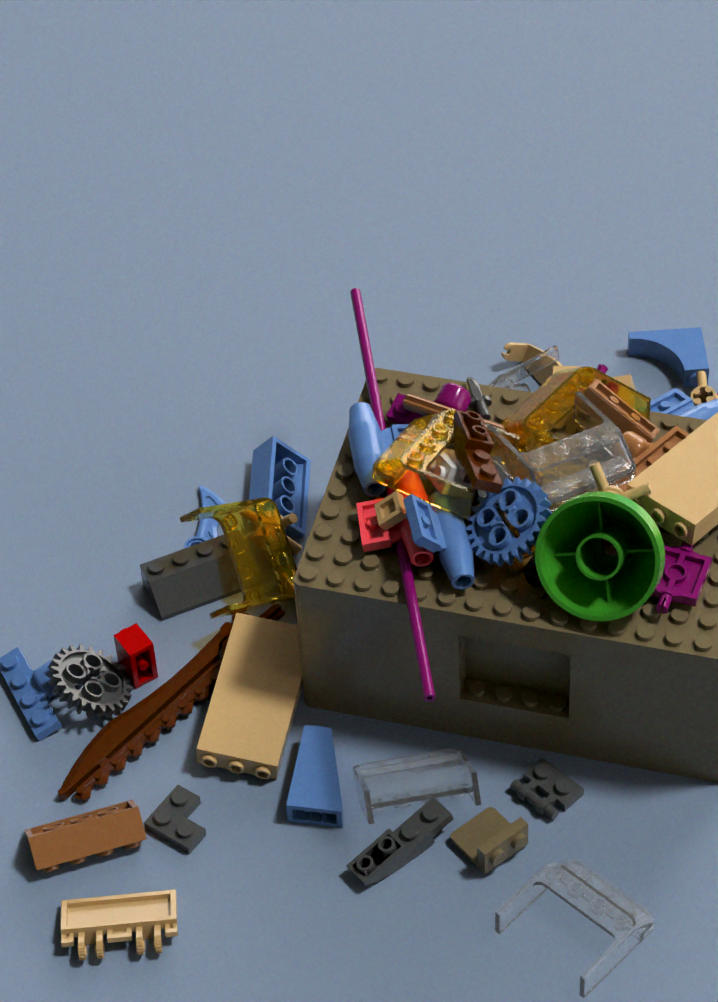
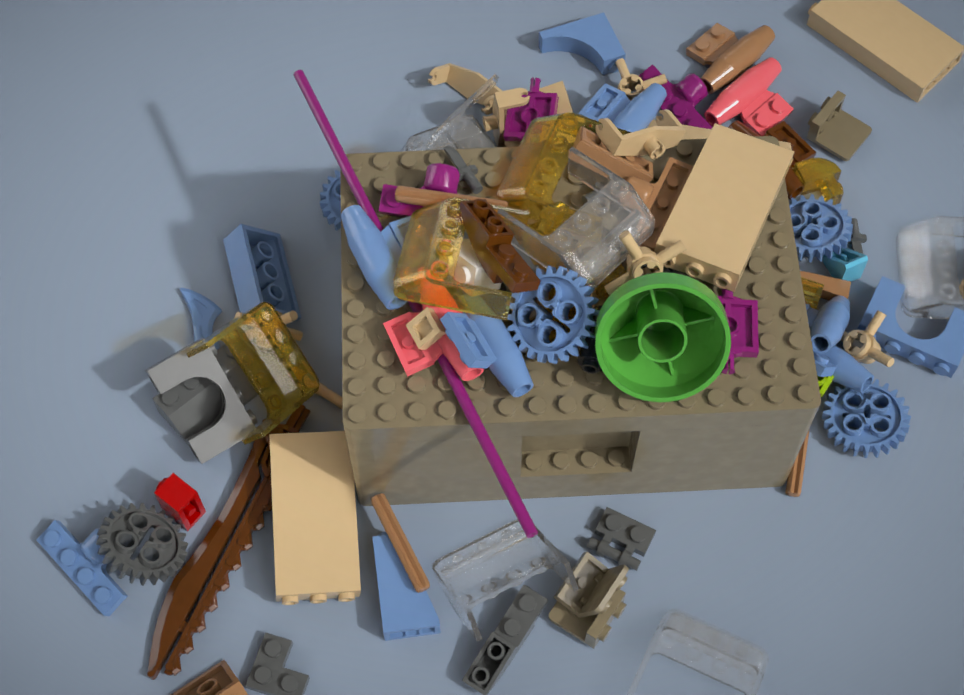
camera: 20 degrees left, 15 degrees up
(192, 539) = (233, 420): none -> arch
(328, 734) = (400, 542): none -> medium nougat axle
(495, 812) = (595, 586): none -> dark tan bracket
(654, 404) = (645, 141): none -> tan piece

